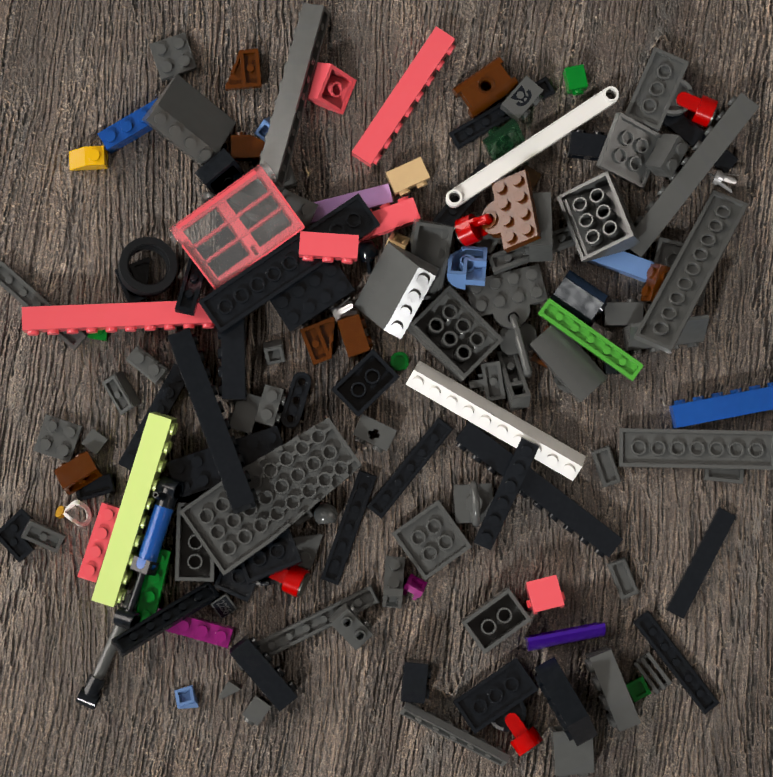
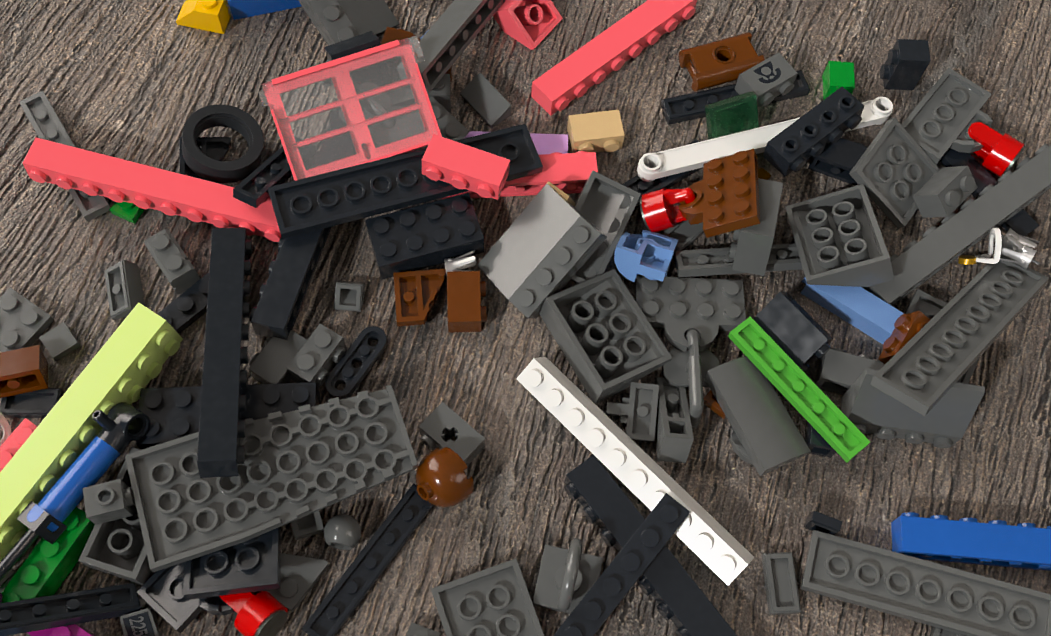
camera: 15 degrees right, 20 degrees down
(181, 541) = (108, 501): none -> dark grey brick
(321, 172) = (486, 100): none -> dark grey slope
(365, 383) = (460, 363): black brick -> none
(368, 251) = (515, 204): black piece -> none
(378, 465) = (443, 479): none -> reddish brown cylinder
(399, 361) = (517, 353): green tile -> none
(410, 467) = (486, 503): black tile -> none
(564, 138) = (813, 132): none -> black brick
(621, 54) = (905, 64): none -> black brick
(622, 422) = (822, 523): none -> black tile
(693, 202) = (985, 258): none -> white piece
(725, 191) = (1022, 259): none -> flat silver piece

